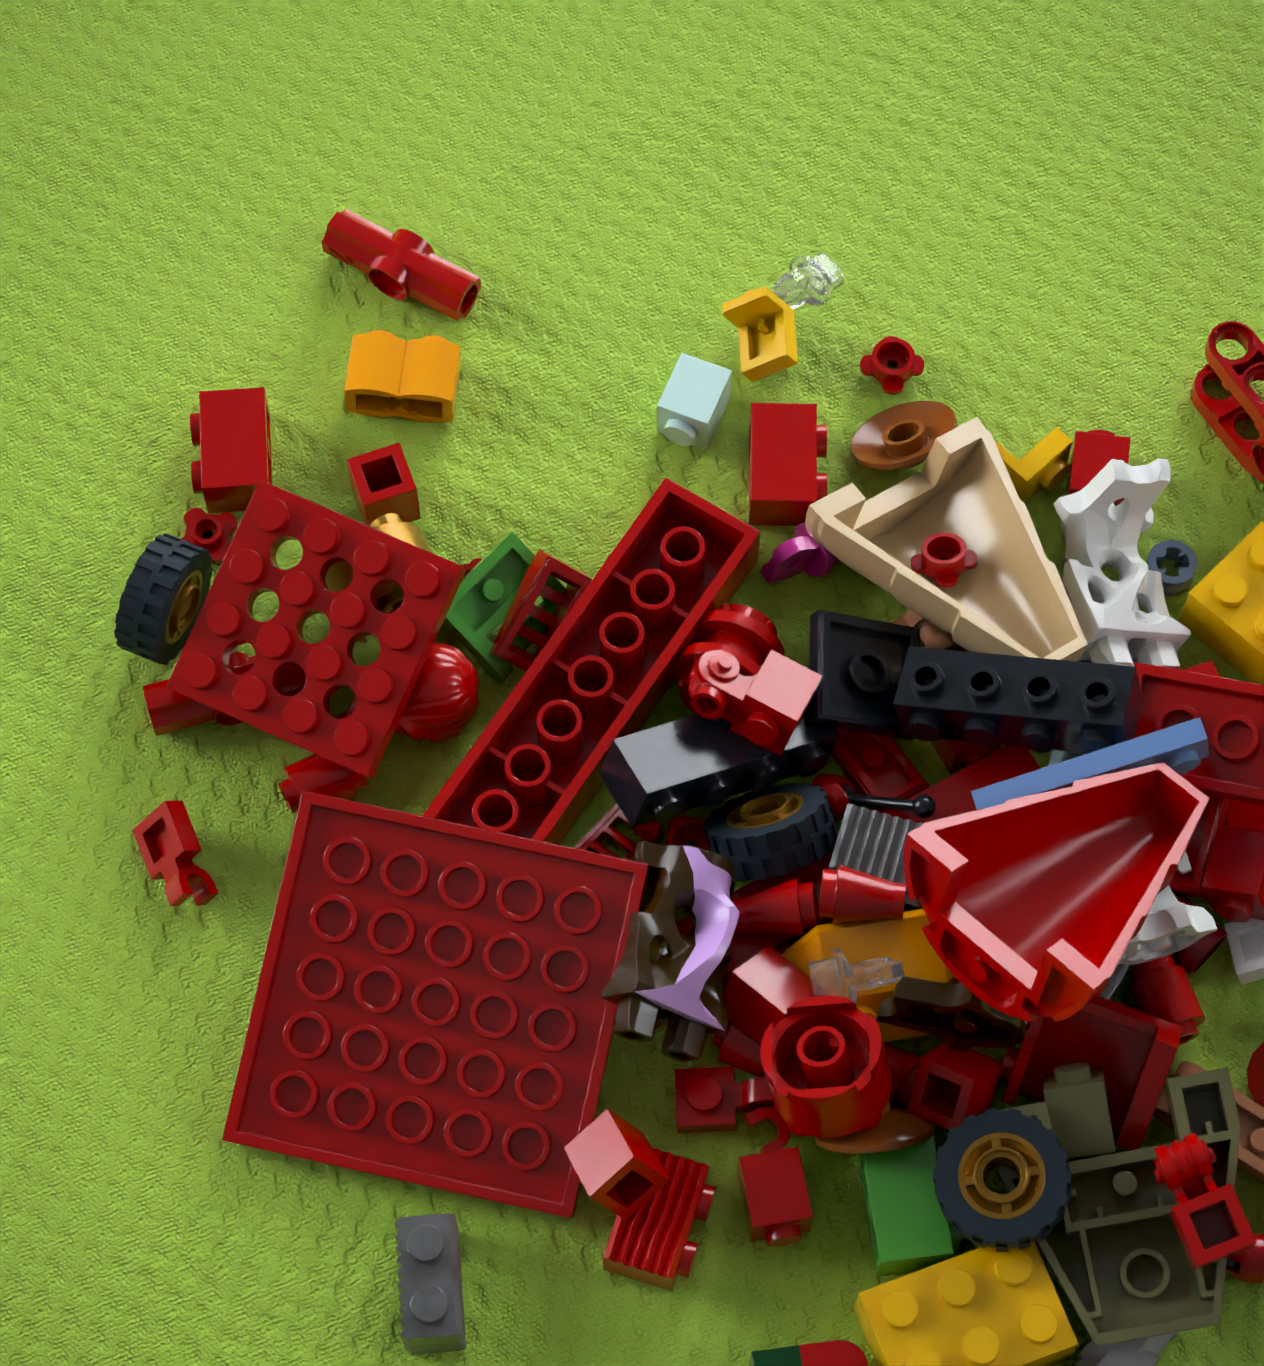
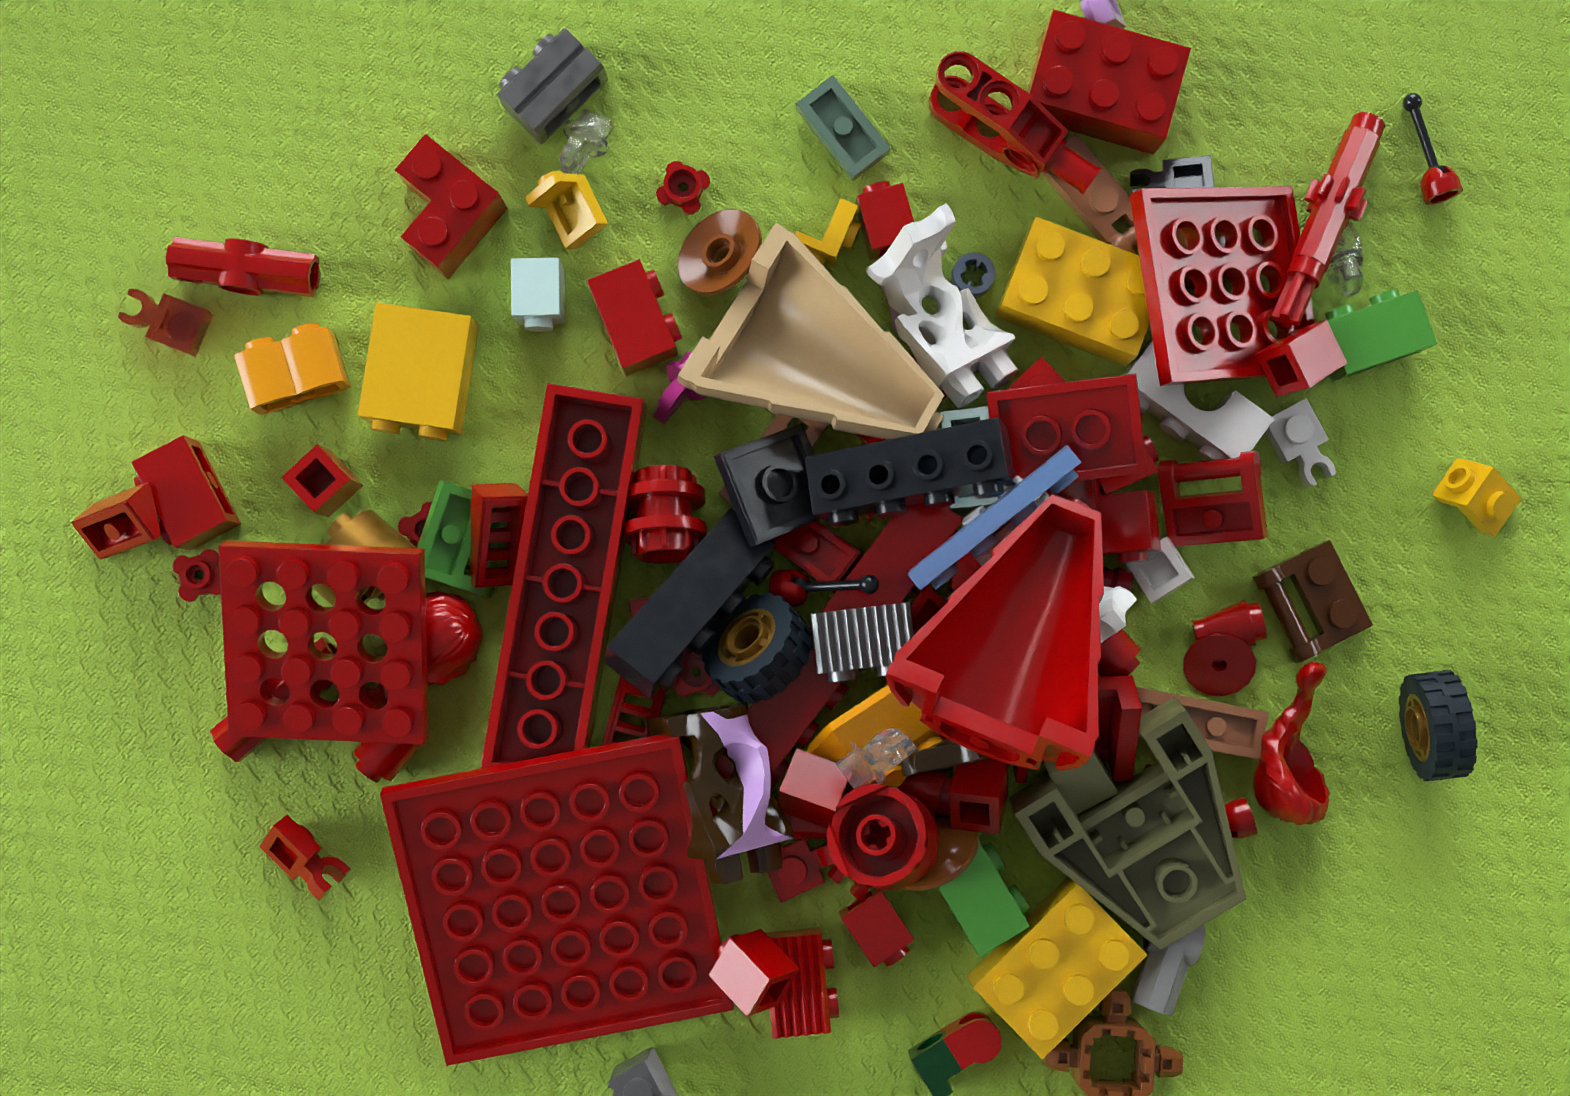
camera: 30 degrees left, 20 degrees up
(155, 447) = (119, 522): none -> red slope
(163, 598) = (189, 658): black wheel -> none
(302, 289) = (171, 322): none -> clear red plate
(533, 427) = (418, 371): none -> yellow brick
(645, 290) = (458, 207): none -> red brick
(759, 706) = (712, 561): brick -> none
(779, 909) = (791, 716): red cone -> none
(798, 217) = (551, 84): none -> flat silver brick
(858, 896) = (852, 691): red cone -> none
(944, 559) = (791, 343): red plate -> none
(996, 1141) = (1058, 898): black wheel -> none
(1088, 371) = (843, 128): none -> sand green plate
(1205, 1216) = (1211, 835): red brick -> none

